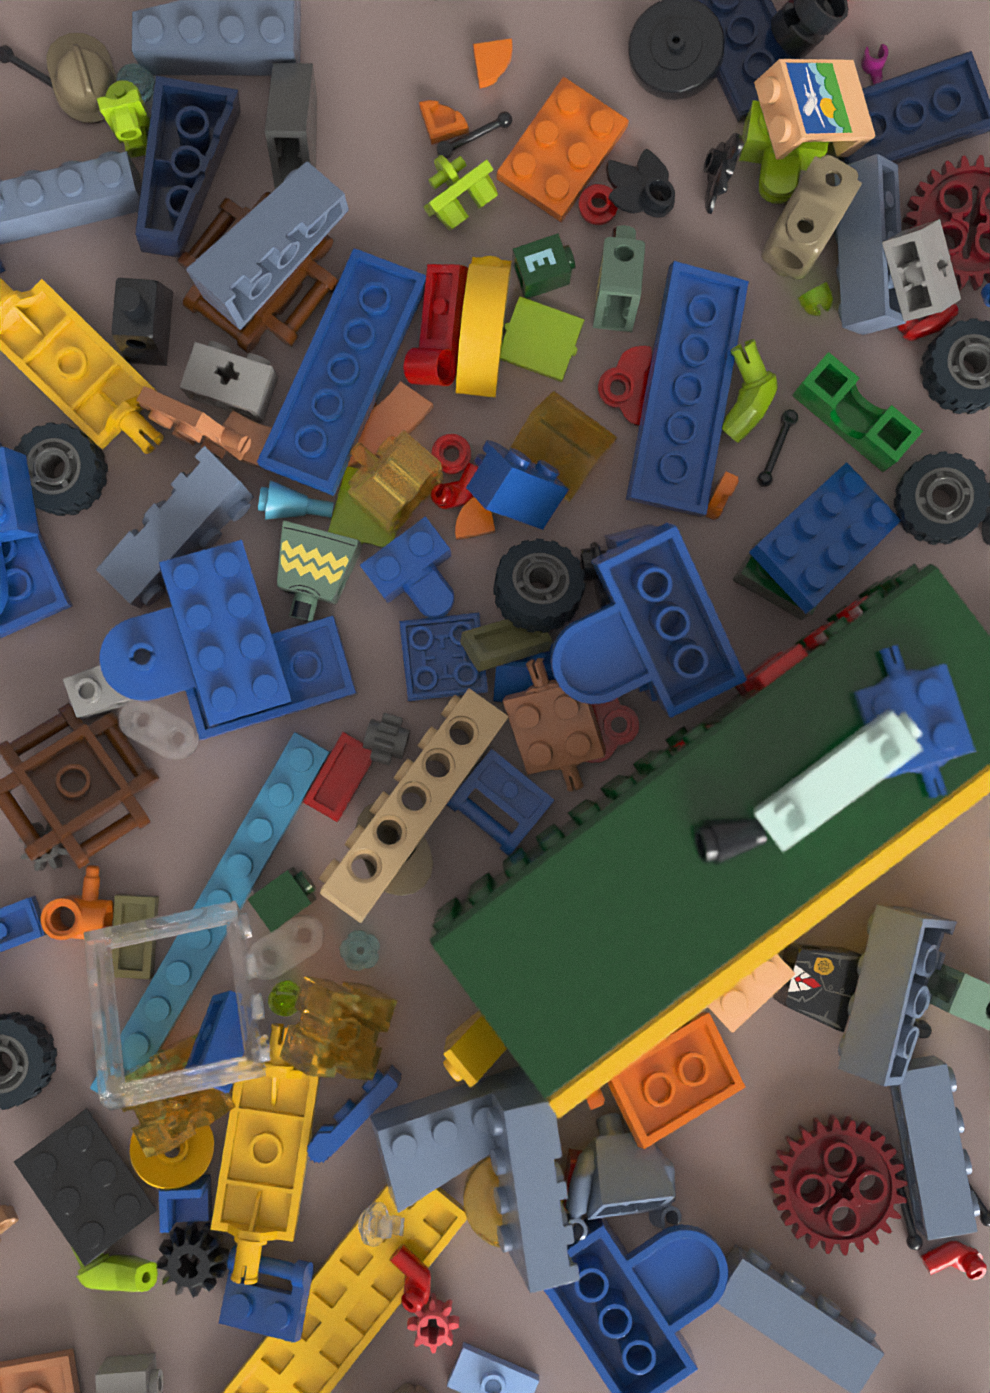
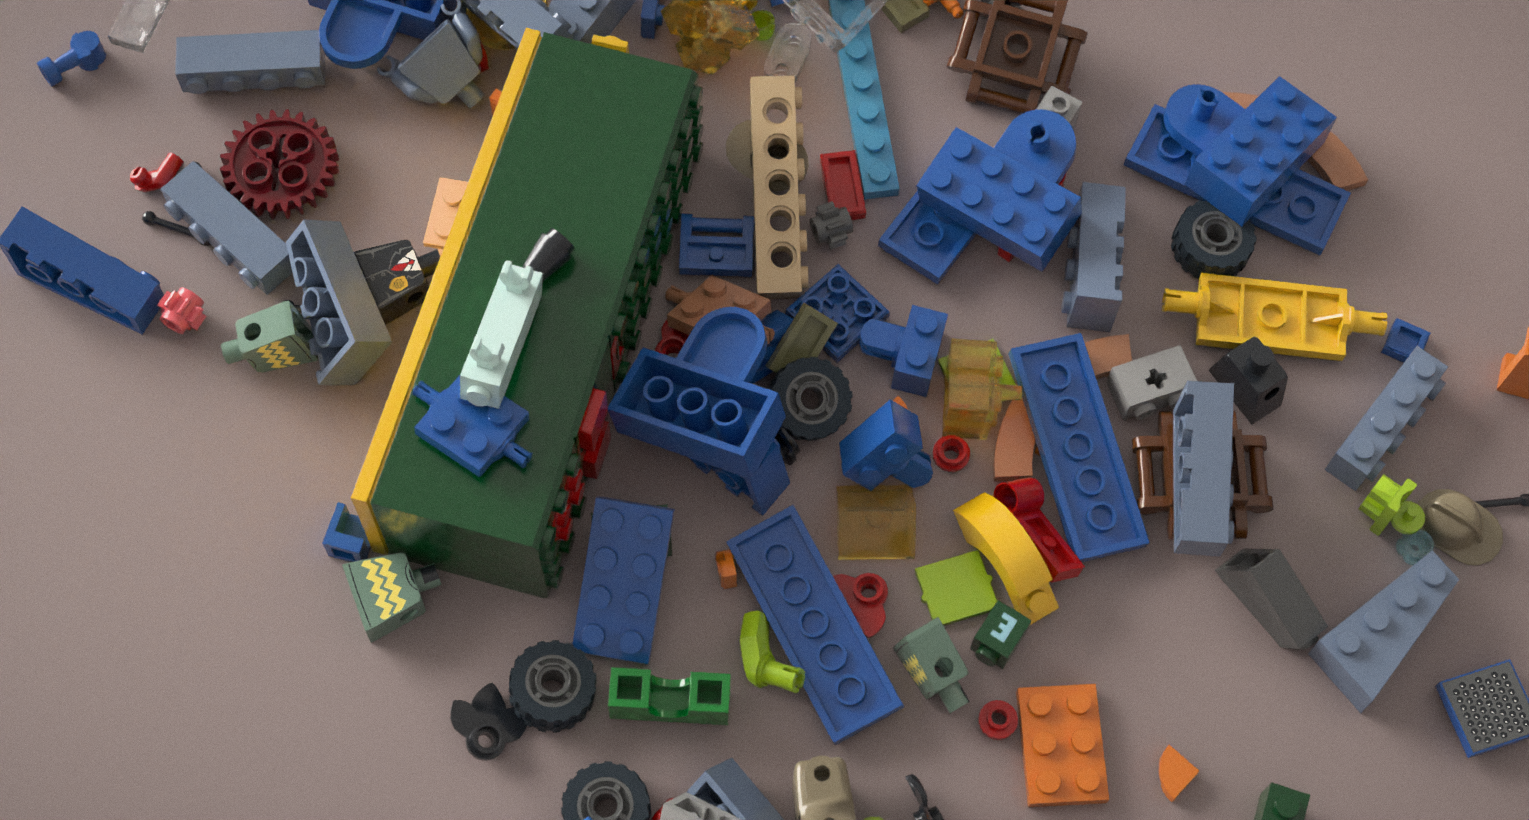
camera: 140 degrees right, 20 degrees down
(160, 729) = (989, 122): clear plate -> none
(182, 156) = (1328, 507): dark blue wedge -> none
(193, 425) = (1147, 321): nougat plate -> none
(283, 898) = (817, 79): dark green brick -> none
(284, 502) = (1041, 328): medium azure cone -> none
(314, 567) = (981, 301): sand green torso -> none
(349, 947) = (734, 79): clear light blue plate -> none
(442, 121) = (1171, 696): orange tile -> none
(446, 148) = (1149, 679): black hinge -> none
(454, 493) = (930, 423): red arm -> none
(476, 182) = (1113, 631): lime hips -> none
(641, 187) = (983, 758): black plate -> none
(676, 1081) = (446, 142): orange plate -> none
(788, 419) = (702, 608): black hinge -> none
(819, 295) = (769, 774): clear neon green hinge -> none

